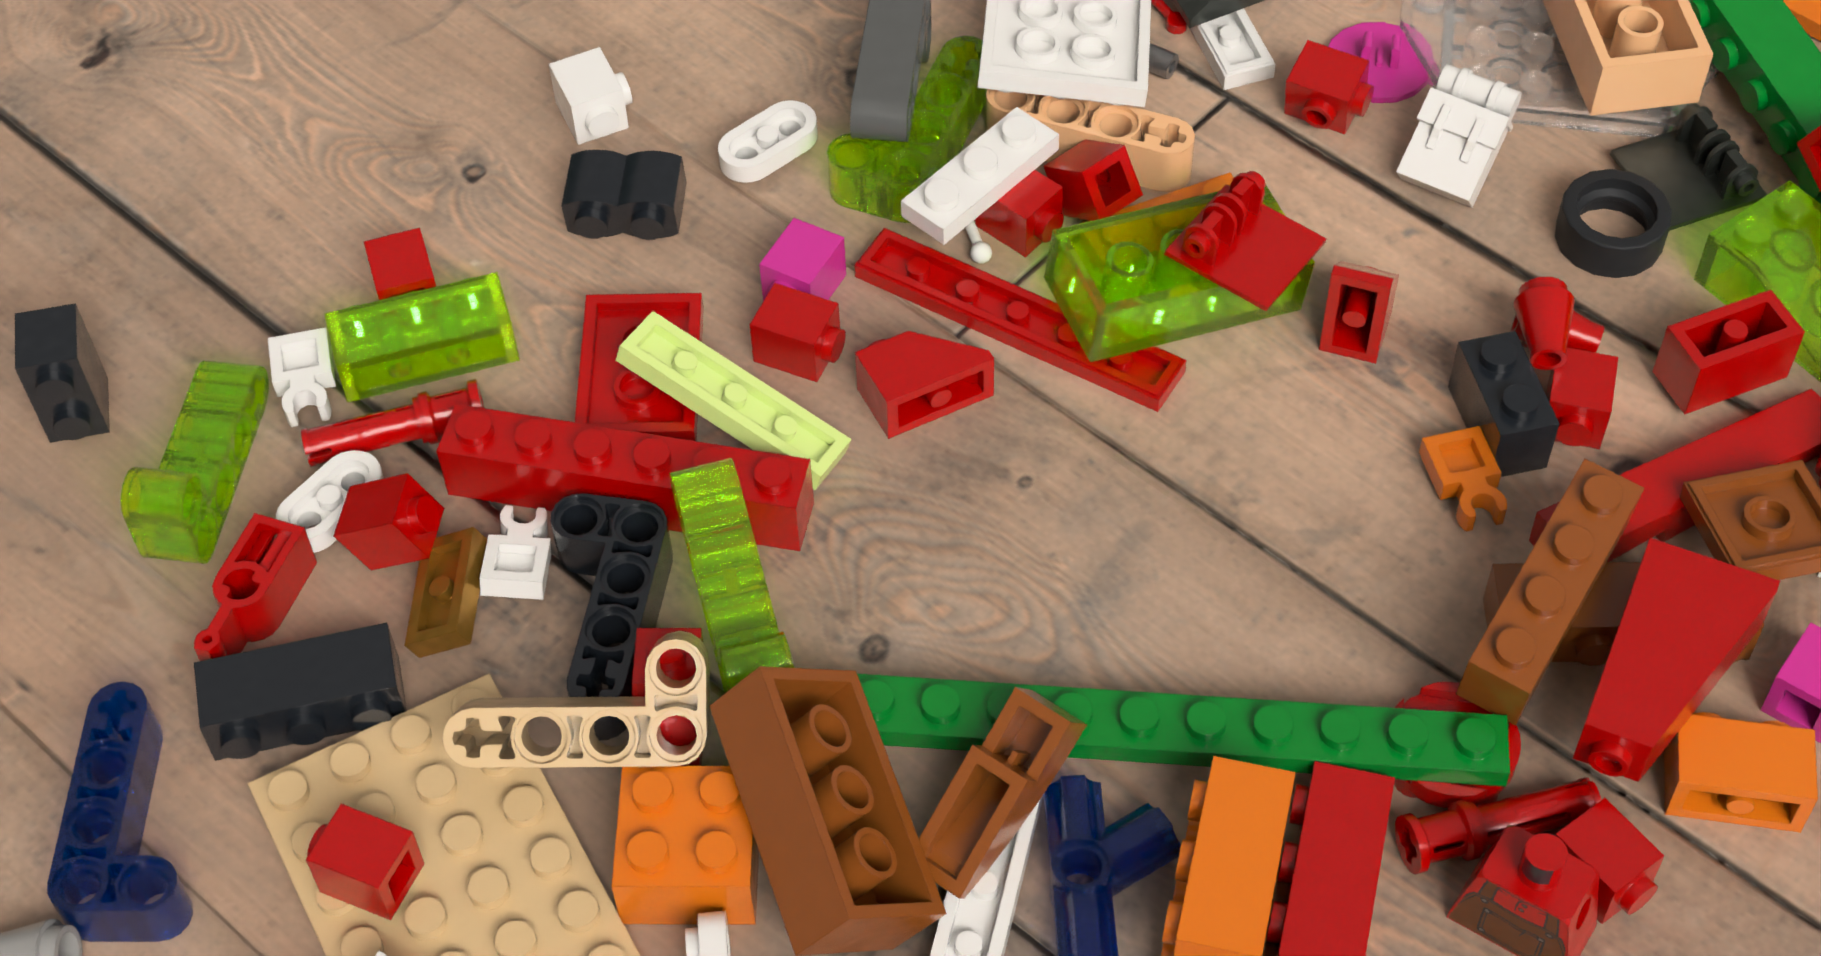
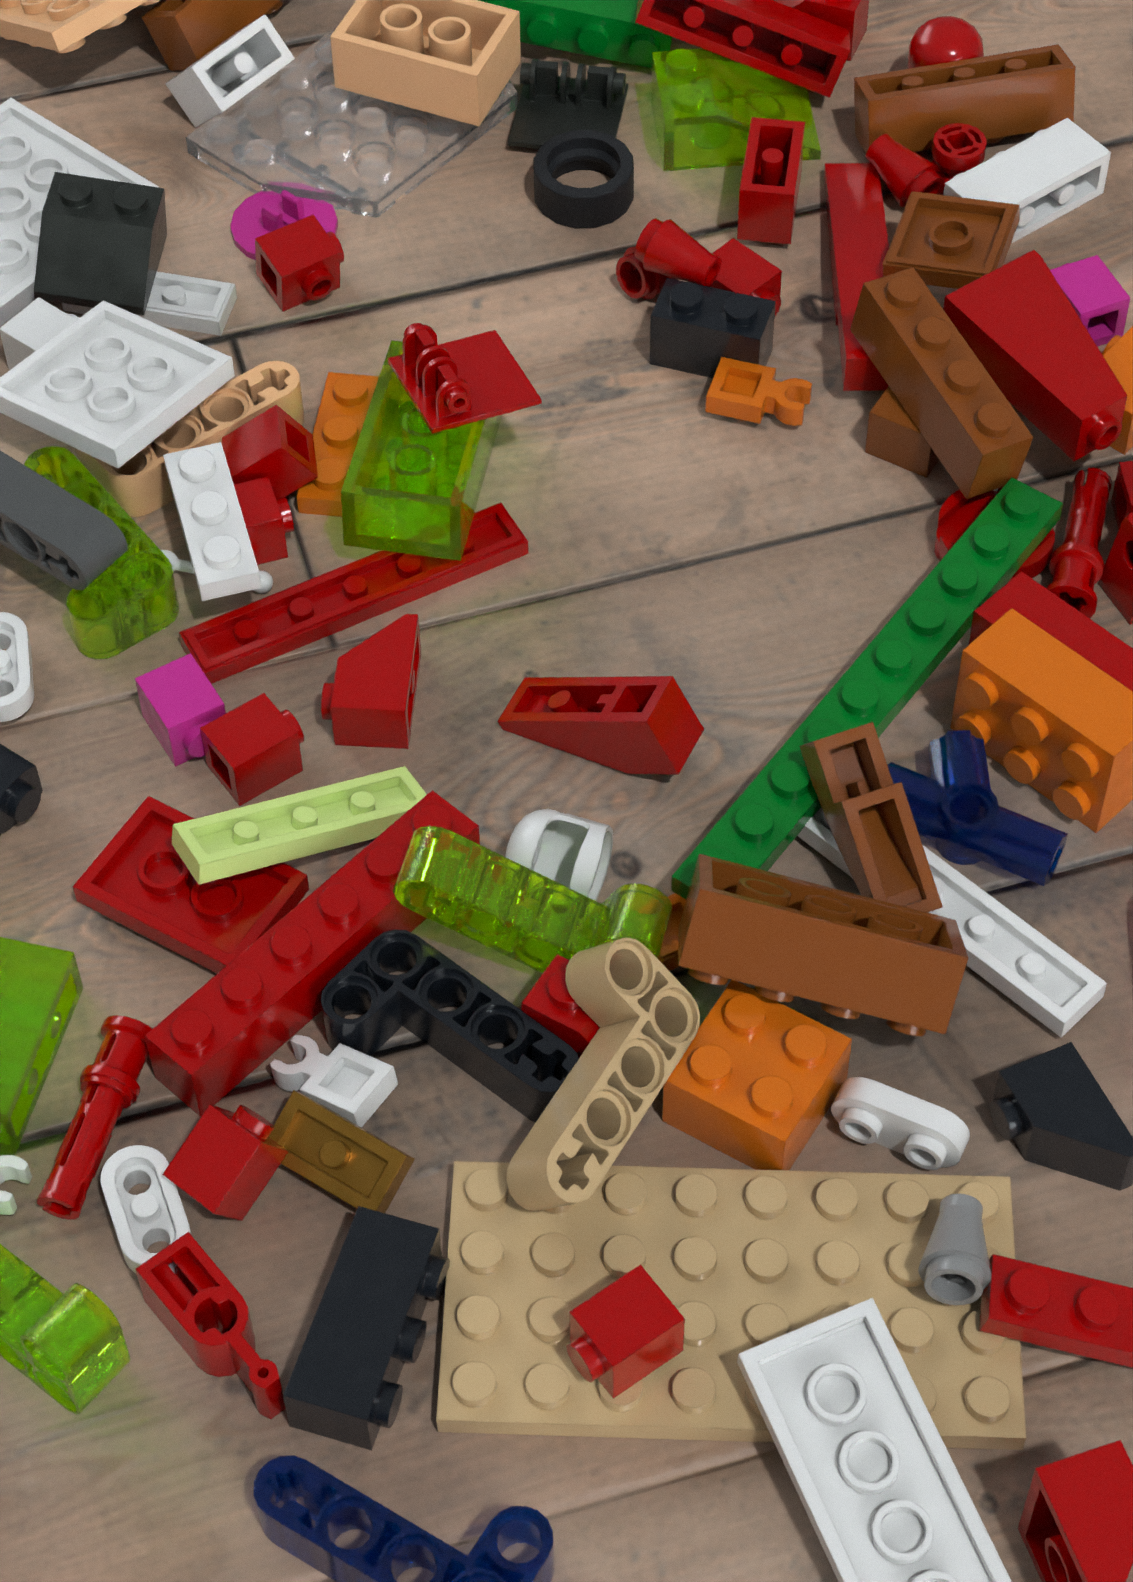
camera: 60 degrees left, 0 degrees up
(820, 592) = (563, 849): none -> white helmet
(996, 554) = (613, 721): none -> red slope
(1357, 311) = (557, 359): red slope -> none
(1459, 134) = (431, 208): white piece -> none

